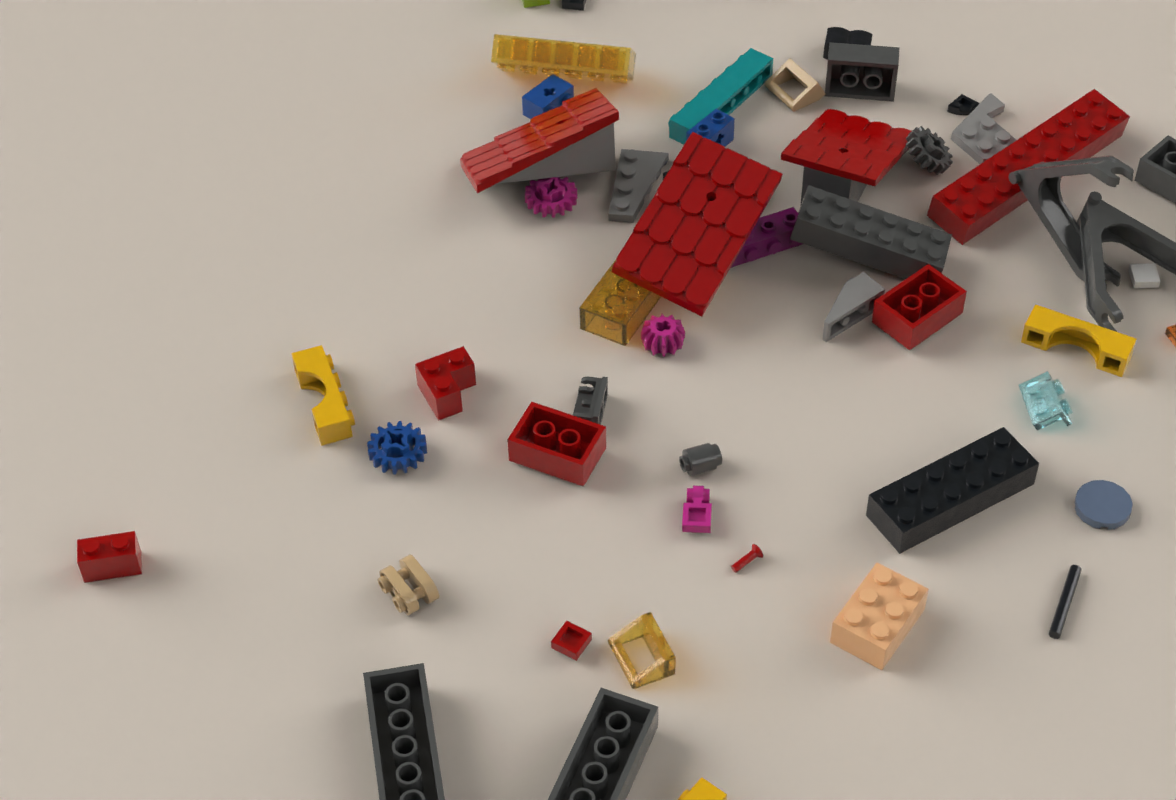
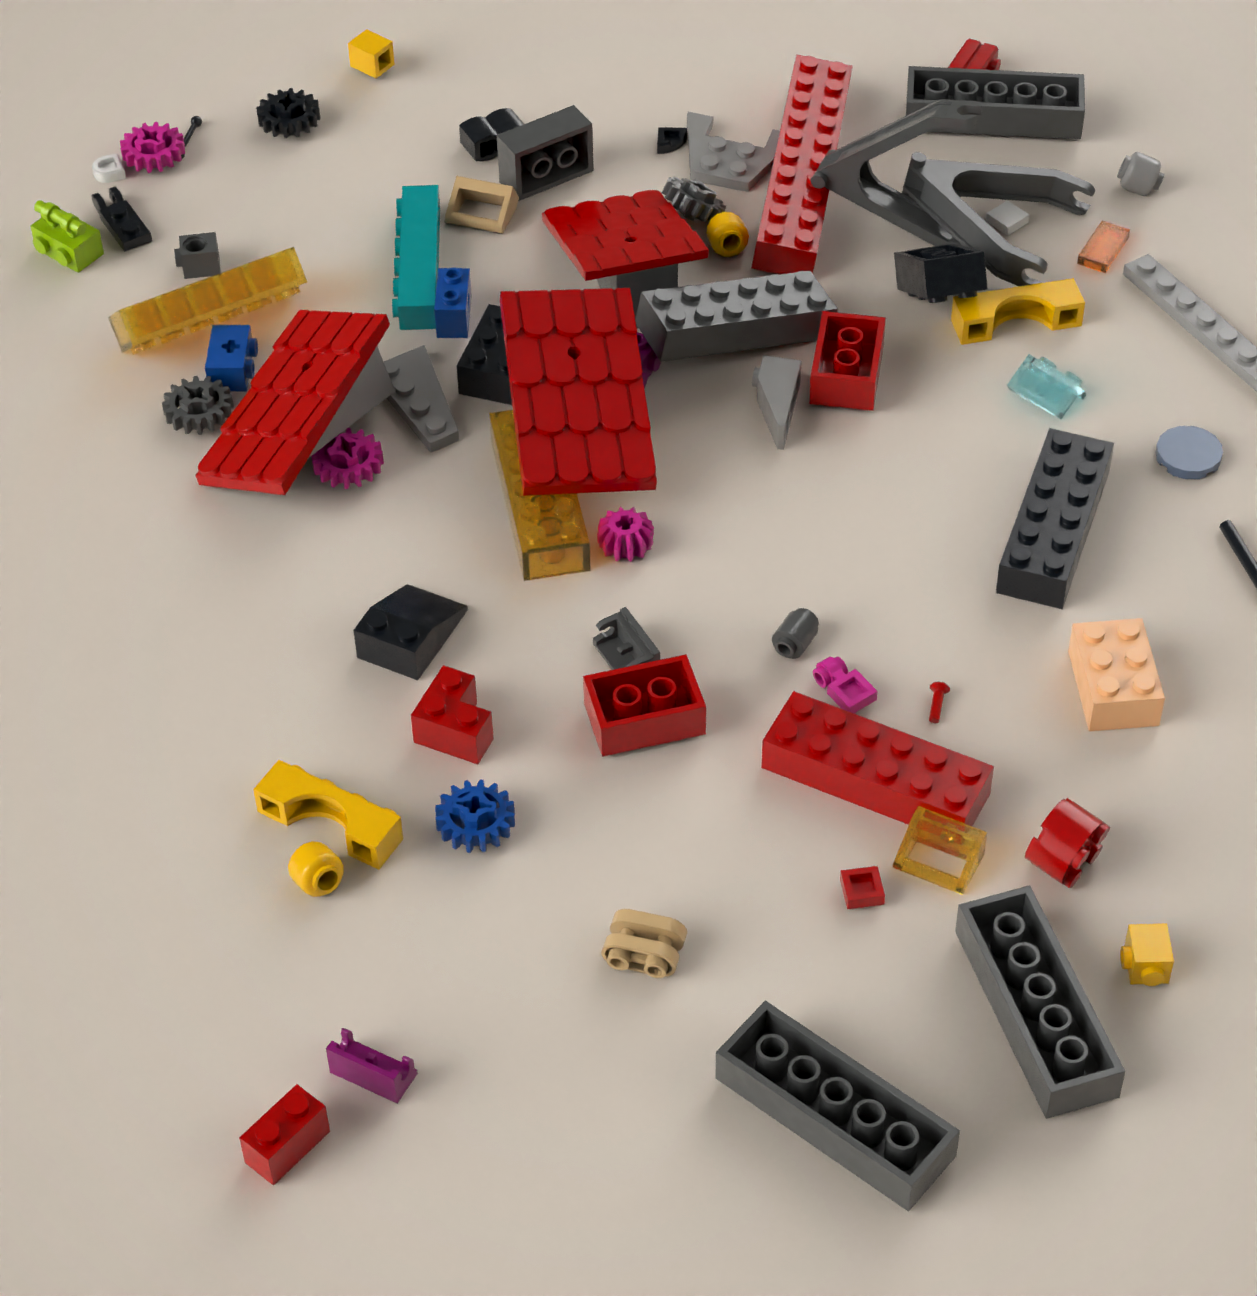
camera: 40 degrees left, 0 degrees up
(195, 551) = (370, 1068): none -> magenta hinge
(281, 421) = (316, 869): none -> yellow head
(479, 315) = (407, 630): none -> black slope
(501, 116) = (197, 405): none -> dark grey gear
(595, 29) = (198, 255): none -> dark grey brick
(659, 572) = (873, 763): none -> red brick
(721, 698) = (1067, 841): none -> red brick
(929, 183) = (727, 234): none -> yellow head
(1038, 282) = (941, 272): none -> black brick

